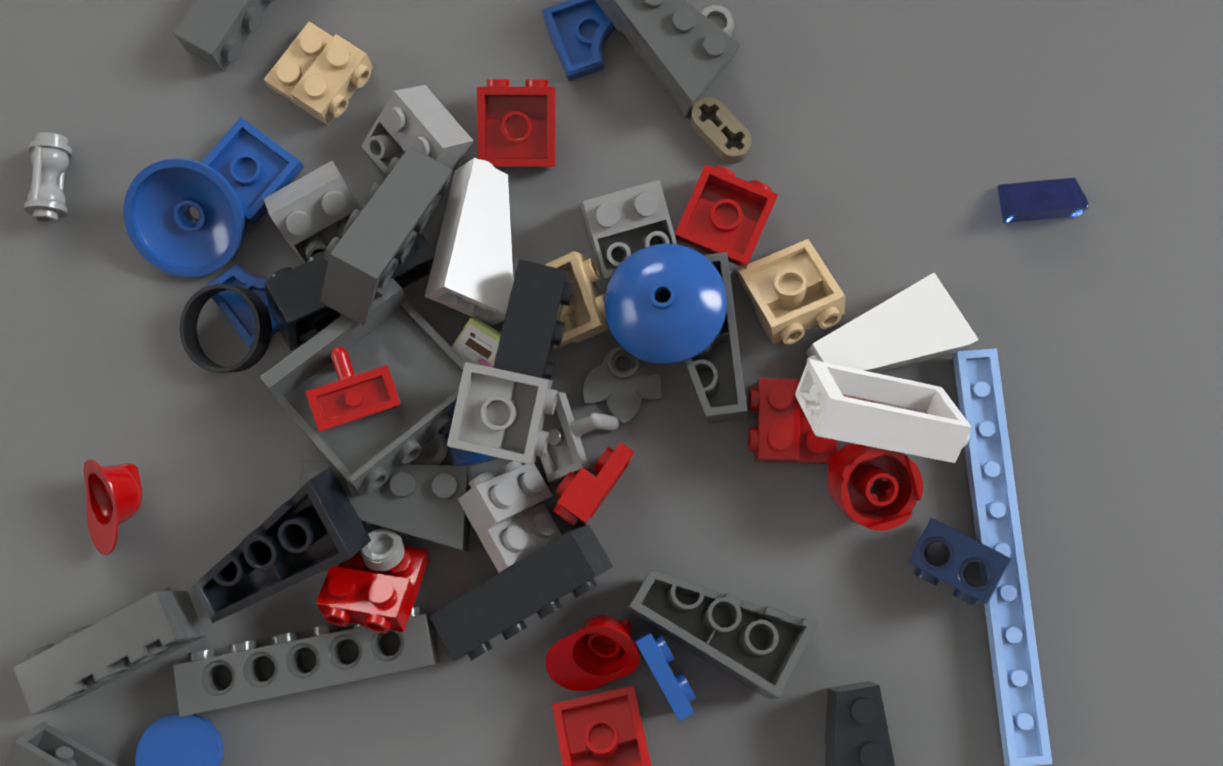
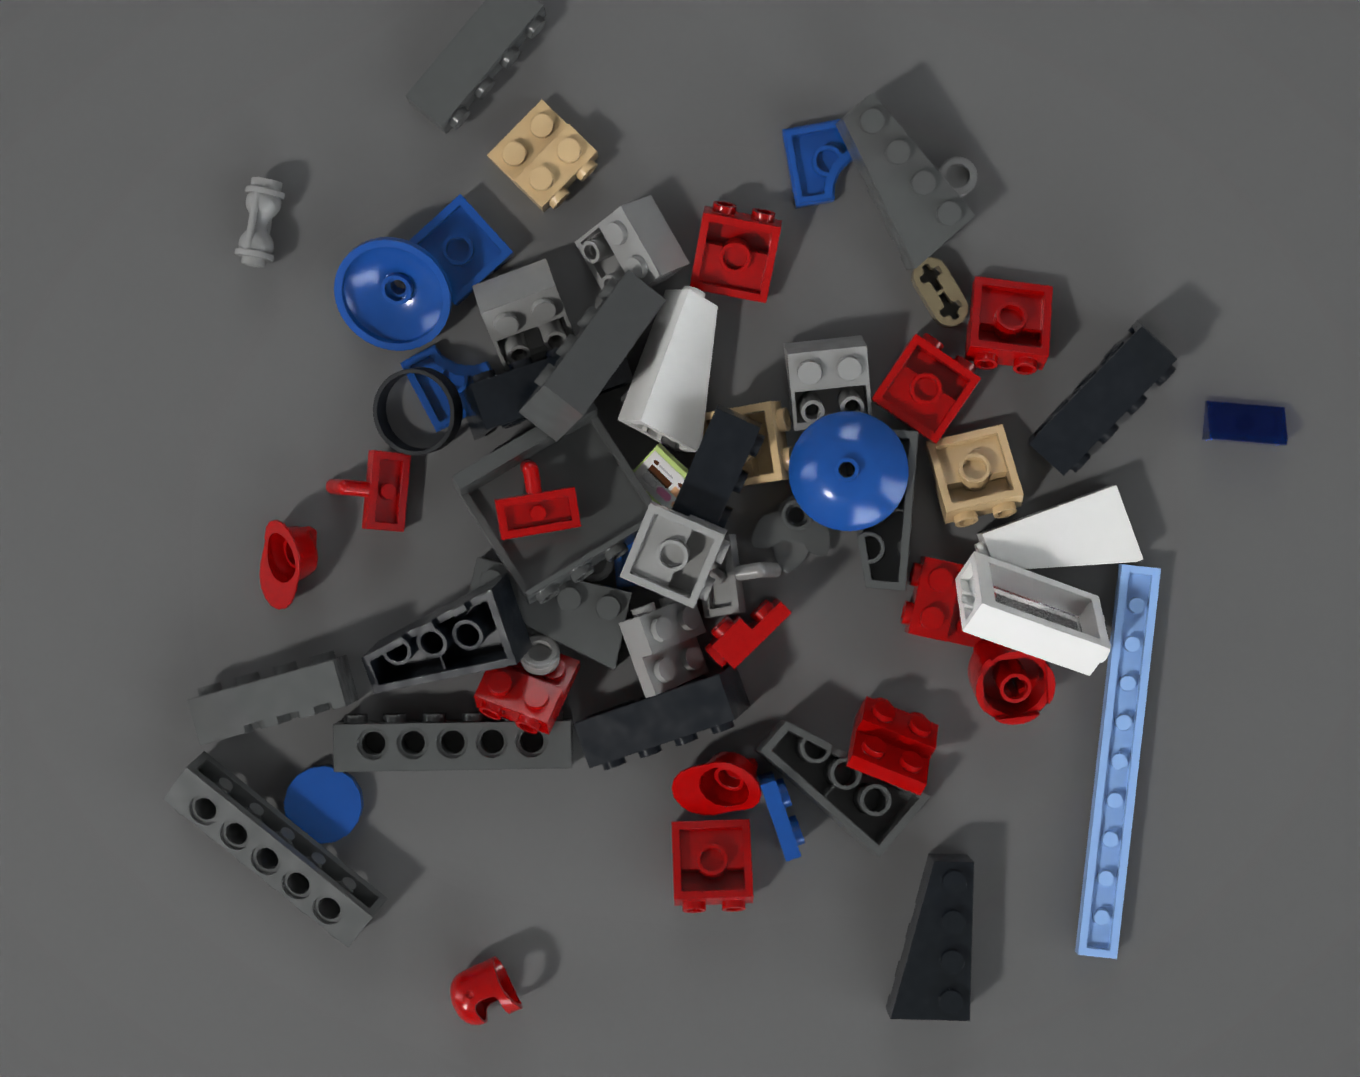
camera: 10 degrees right, 10 degrees up
(201, 412) = (383, 490): none -> red plate
(767, 576) = (892, 744): none -> red plate
(794, 145) = (1009, 325): none -> red plate
(902, 192) = (1103, 399): none -> black wedge
(963, 552) = (1080, 755): dark blue brick -> none

